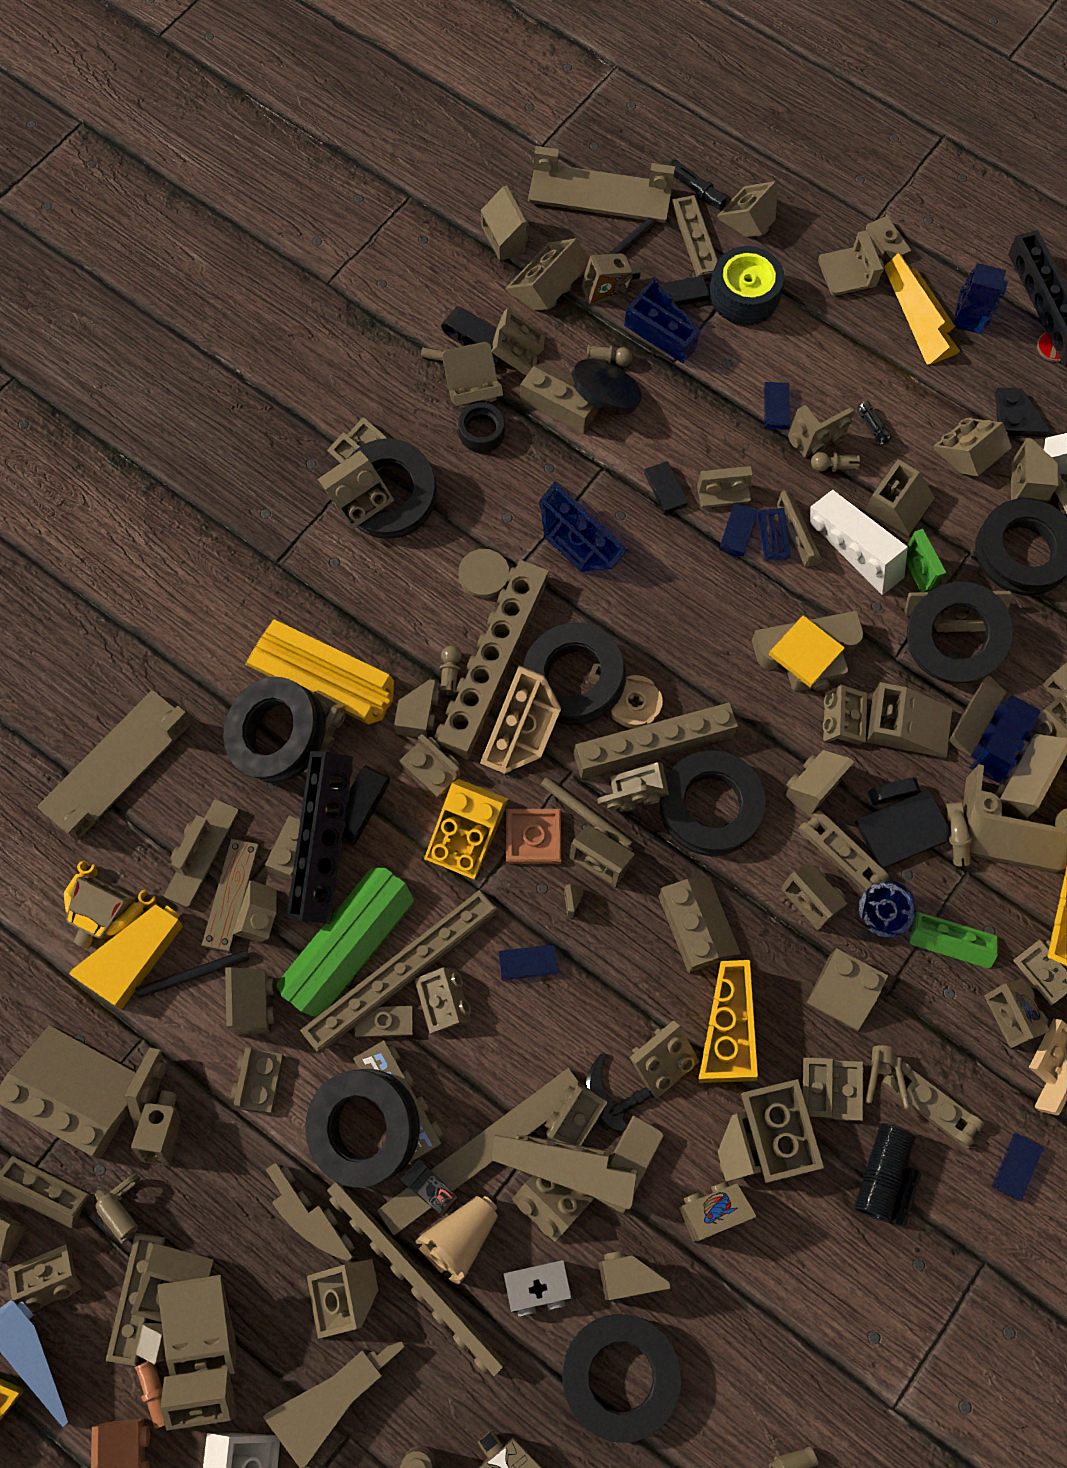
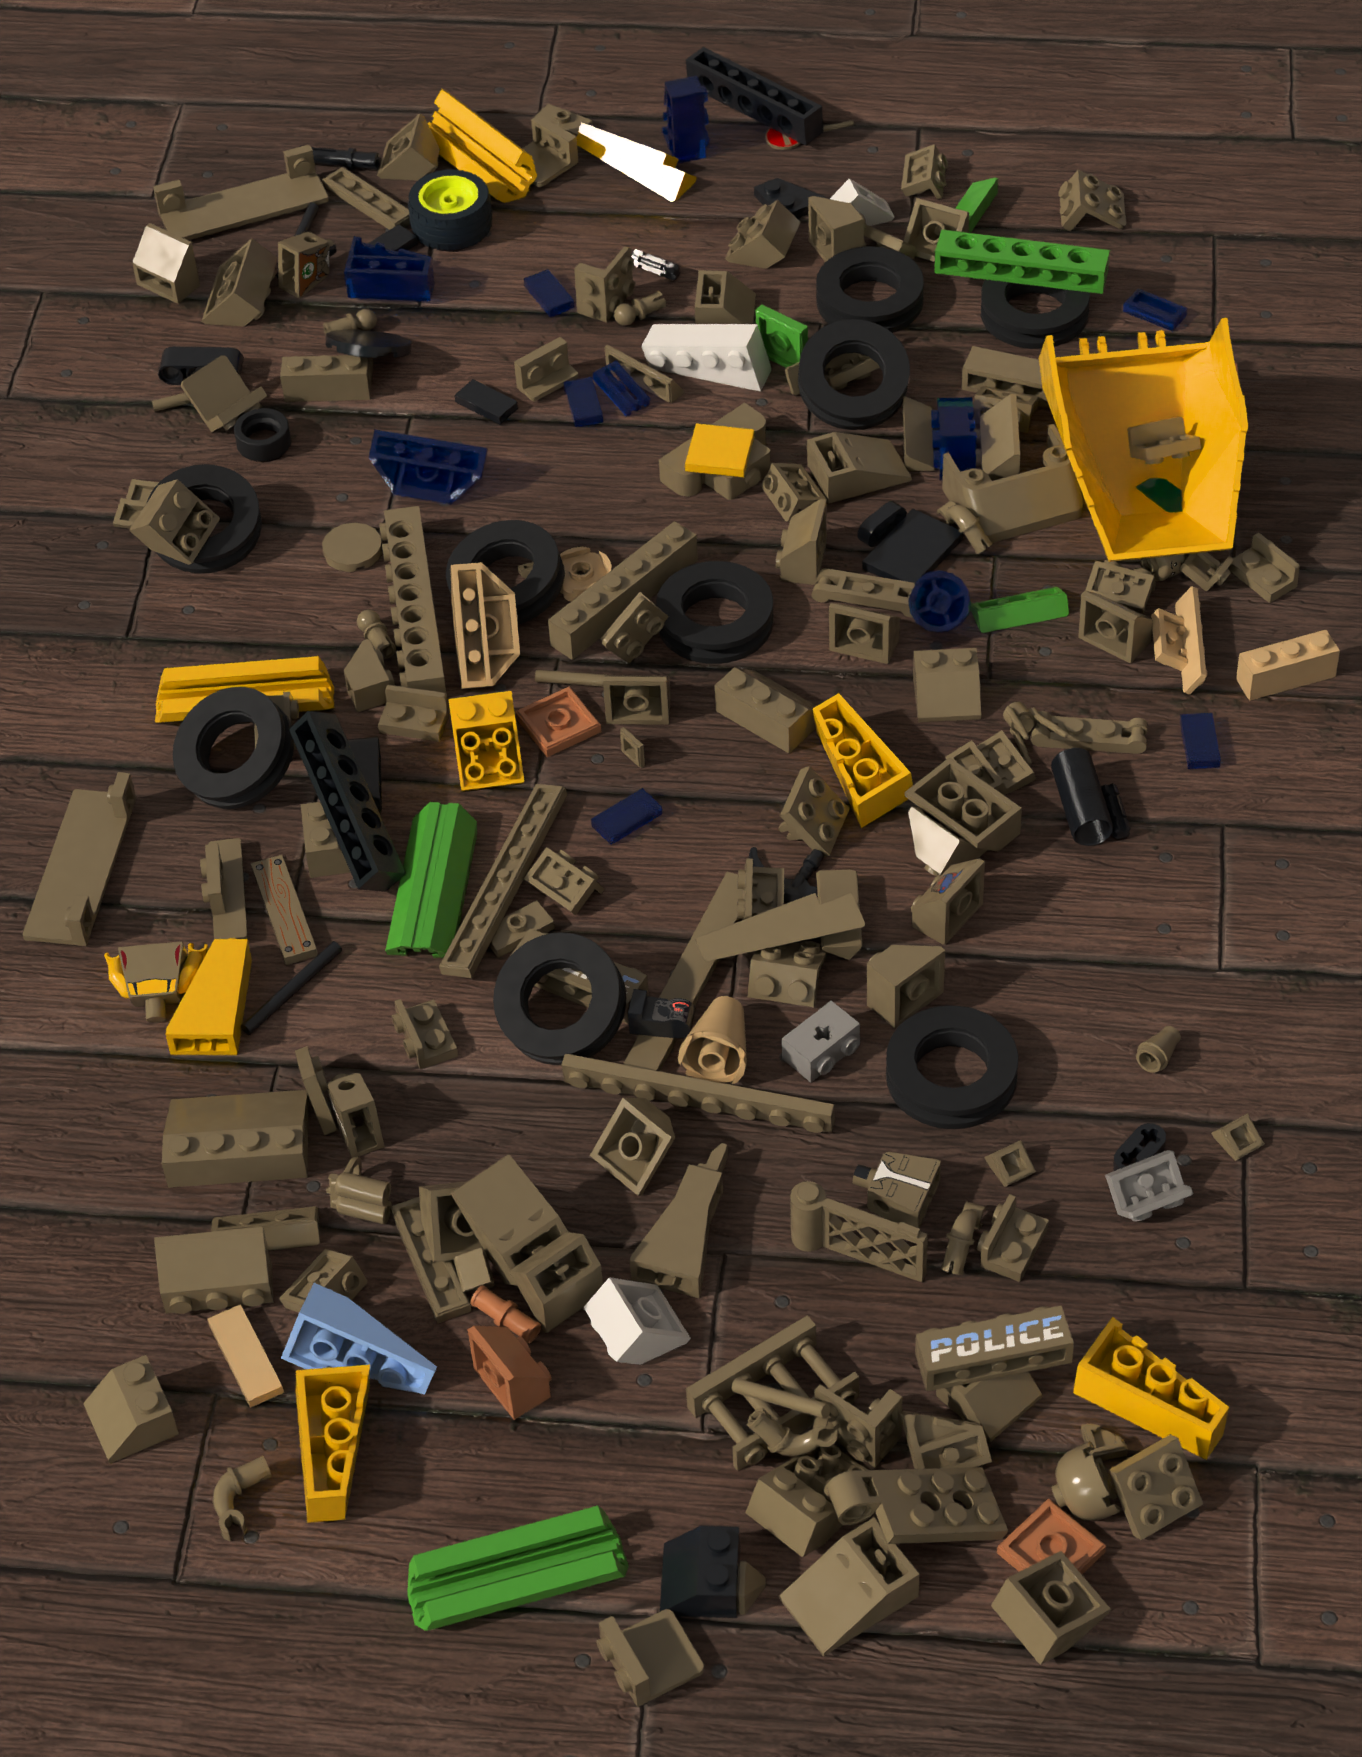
camera: 25 degrees left, 20 degrees down
(249, 1001) = (368, 970): dark tan slope -> none
(256, 912) = (325, 906): dark tan slope -> none
(314, 1226) = (565, 1109): dark tan slope -> none
(517, 342) = (250, 349): dark tan slope -> none
(804, 237) = (481, 149): none -> yellow piece

